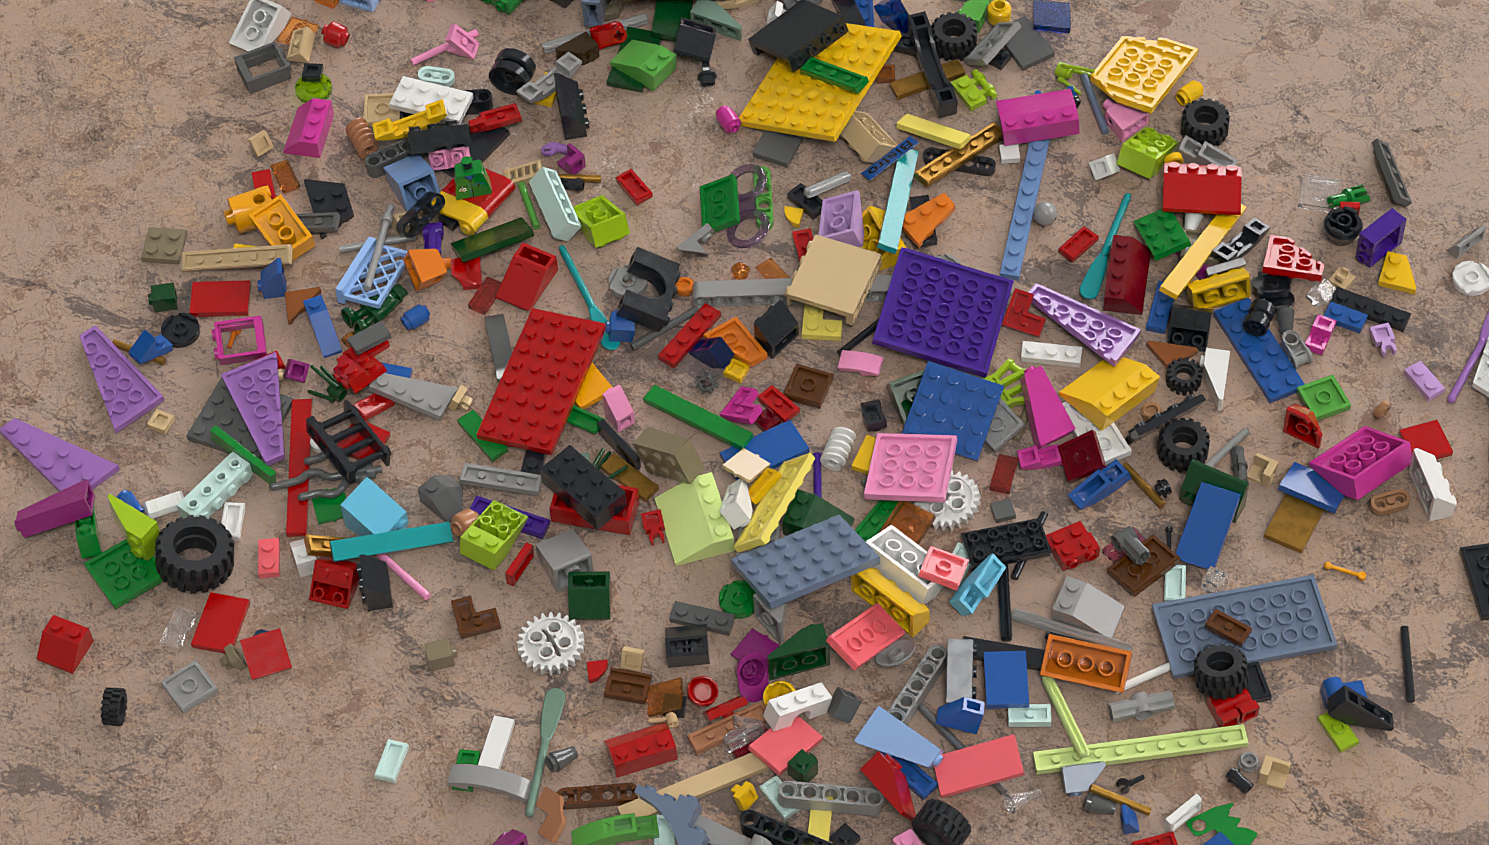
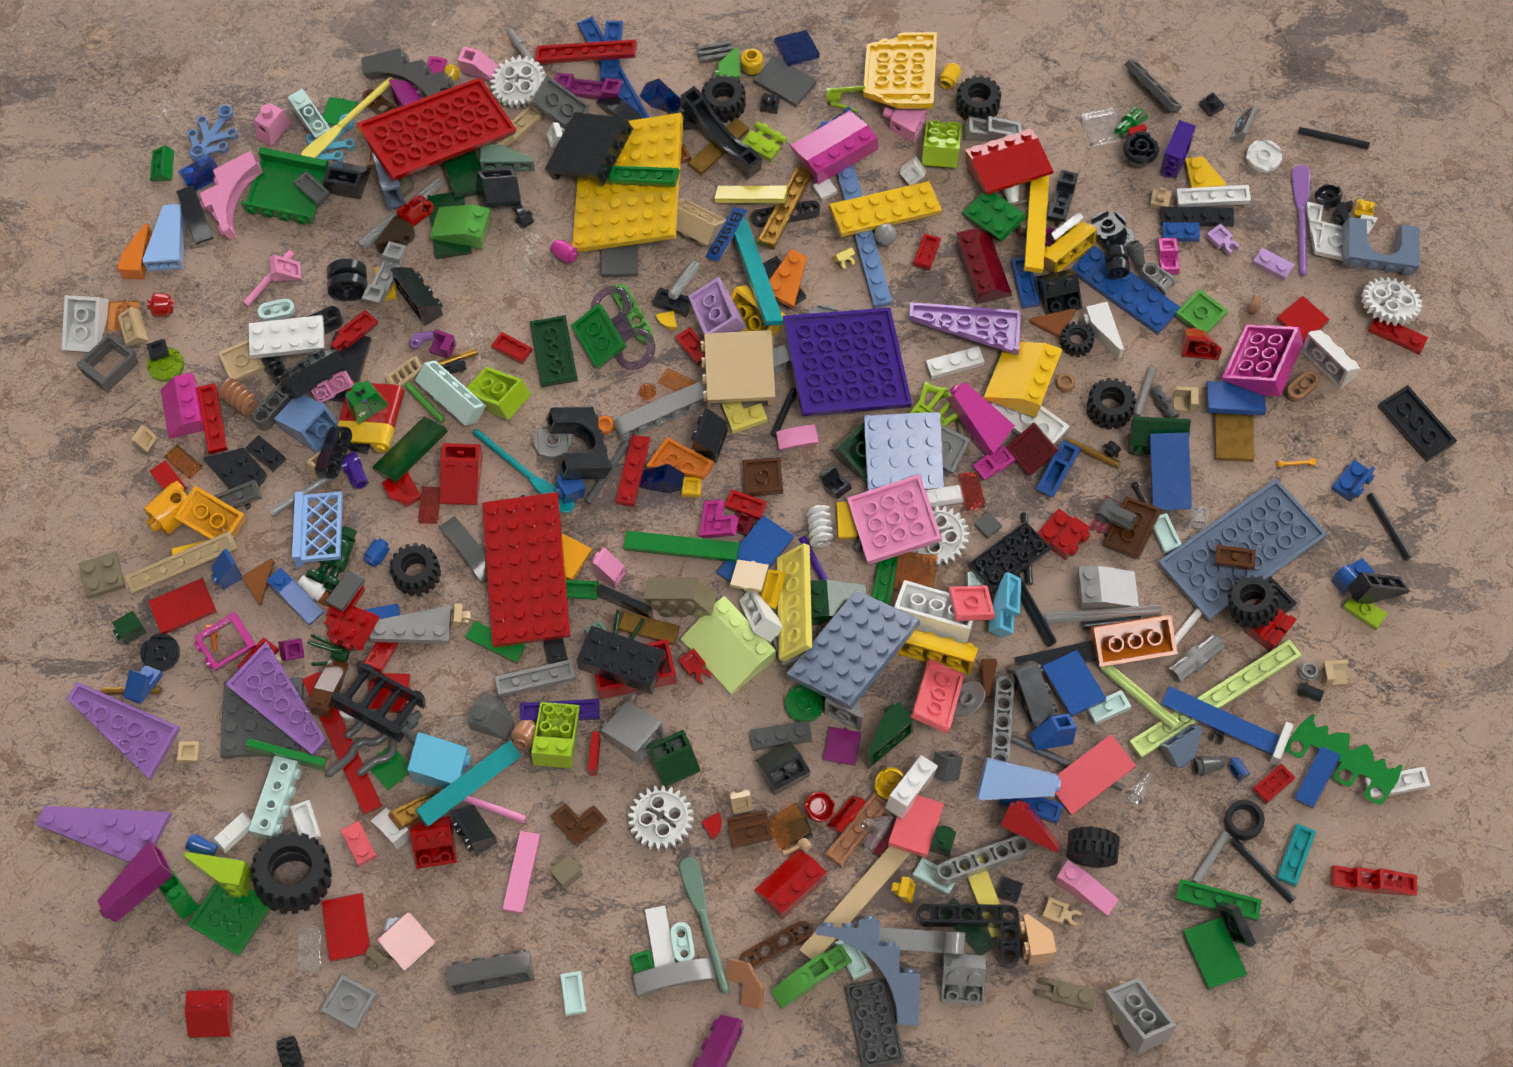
camera: 25 degrees left, 10 degrees up
(317, 406) = (329, 682): none -> reddish brown slope
(325, 711) = (490, 973): none -> dark grey slope
(330, 149) = (212, 418): none -> red plate
(341, 324) = (311, 587): none -> white cone
(362, 196) = (265, 453): none -> black plate
(386, 221) = (302, 470): light grey bar -> none
(394, 130) = (264, 380): yellow slope -> none
(400, 640) = (521, 872): none -> bright pink tile
(426, 267) = (363, 501): orange torso -> none
(441, 331) = (415, 555): none -> black tyre
(513, 760) = (683, 943): none -> light aqua plate
(561, 758) = (725, 925): dark grey cone -> none
(672, 204) = (553, 351): none -> dark green tile
(692, 244) = (594, 383): light grey slope -> none
(712, 379) = (676, 513): dark grey gear -> none
(752, 676) = (855, 774): magenta piece -> none
(930, 636) = (987, 672): none -> reddish brown slope
(974, 468) = (945, 496): none -> white tile
(992, 43) = (762, 93): light grey tile -> none
(993, 218) = (843, 256): none -> light yellow tile
(1018, 316) = (911, 340): red plate -> none
(1060, 189) = (888, 207): none -> yellow plate
(1094, 103) = (868, 110): sand blue bar -> none
(1094, 277) = (955, 278): teal piece -> none
(1119, 799) = (1224, 753): pearl gold bar -> none
(1130, 766) = (1220, 720): none -> blue tile
(1160, 419) = (1087, 383): black tile -> none
(1174, 157) = (968, 143): yellow tile -> none
(1288, 260) = (1113, 199): plate -> none
(1320, 292) = (1151, 217): clear plate -> none
(1393, 608) = (1352, 481): none -> blue bracket
(1396, 295) = (1213, 196): none -> white plate
(1443, 211) = (1211, 104): none -> black tile

